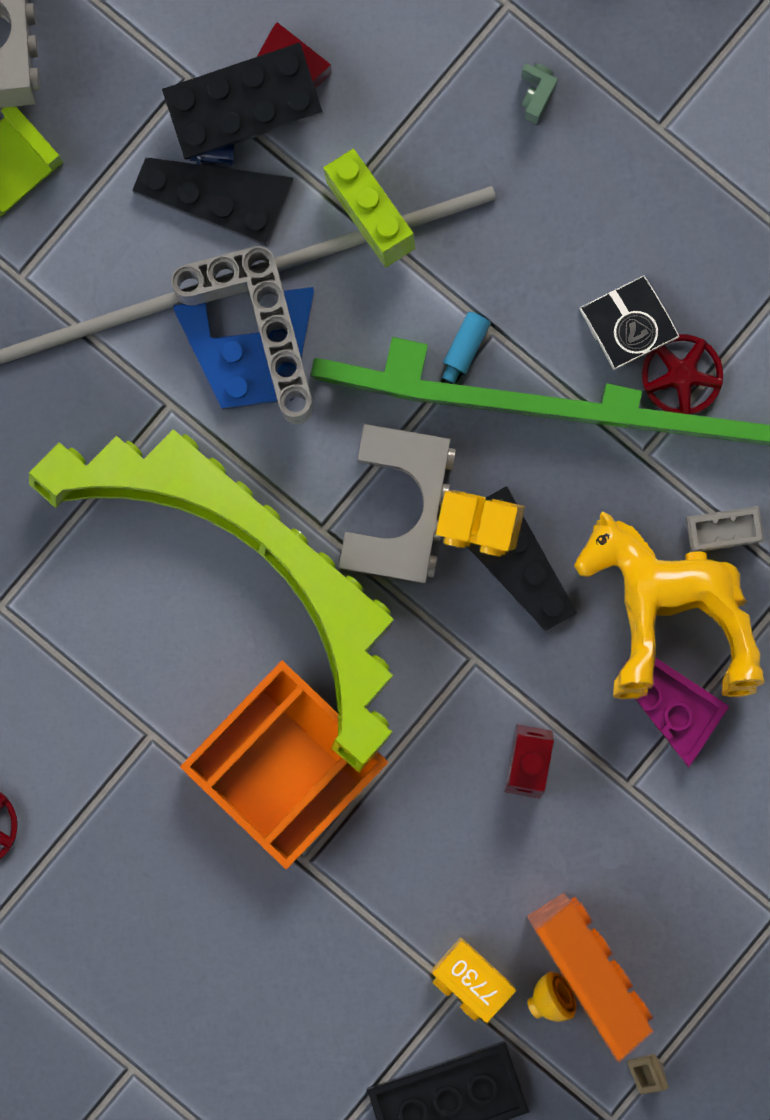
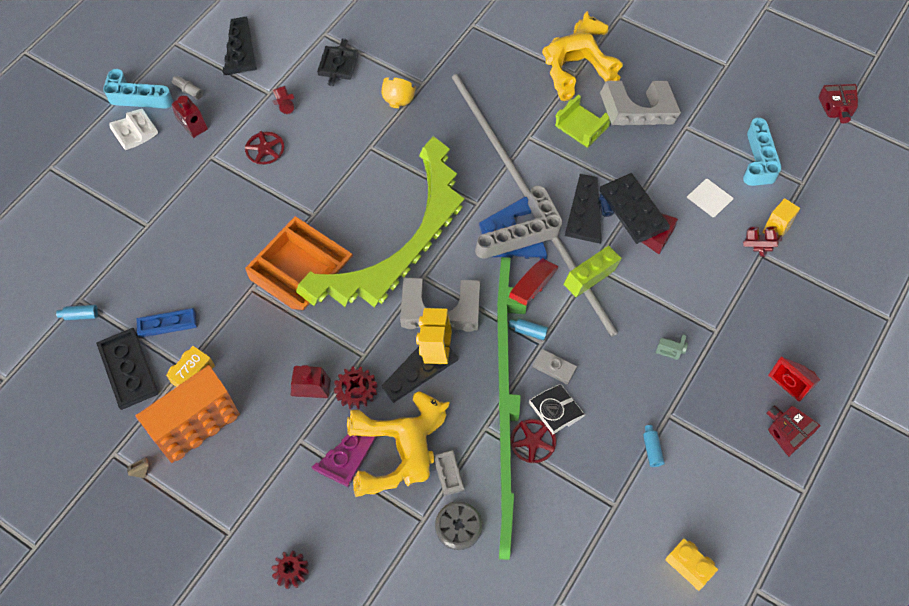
camera: 85 degrees right, 25 degrees down
(361, 1027) = (166, 322): none -> blue tile
(379, 321) = (533, 281): none -> red slope
(545, 312) = (554, 366): none -> light grey plate
(557, 665) = (356, 395): none -> dark red gear
(720, 168) = (653, 447): none -> dark azure cylinder

